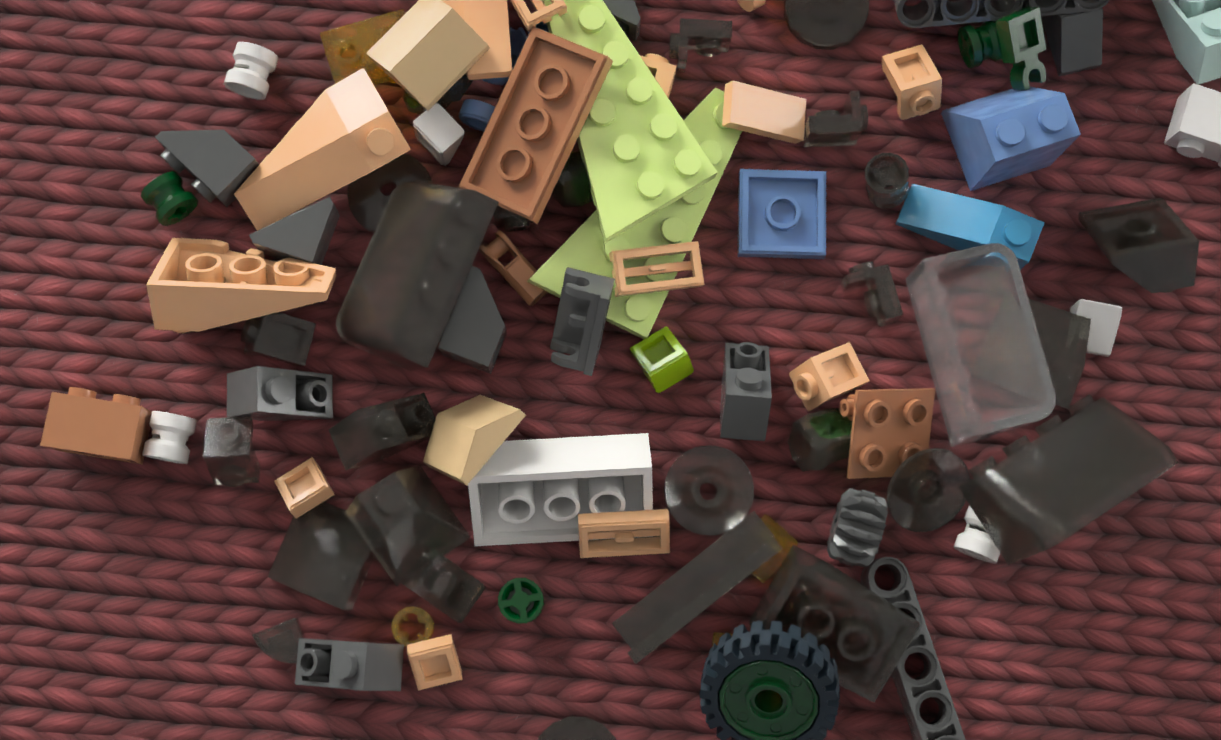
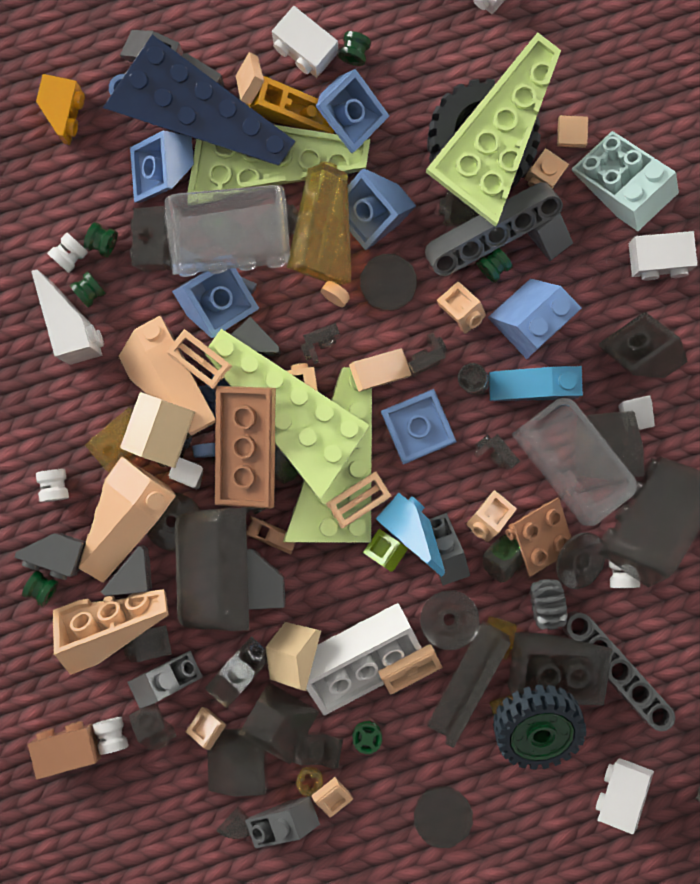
camera: 15 degrees left, 5 degrees up
(581, 319) = (327, 552): dark grey hinge -> none
(712, 338) = (412, 528): none -> dark azure slope
(1020, 42) = (518, 257): dark green plate -> none

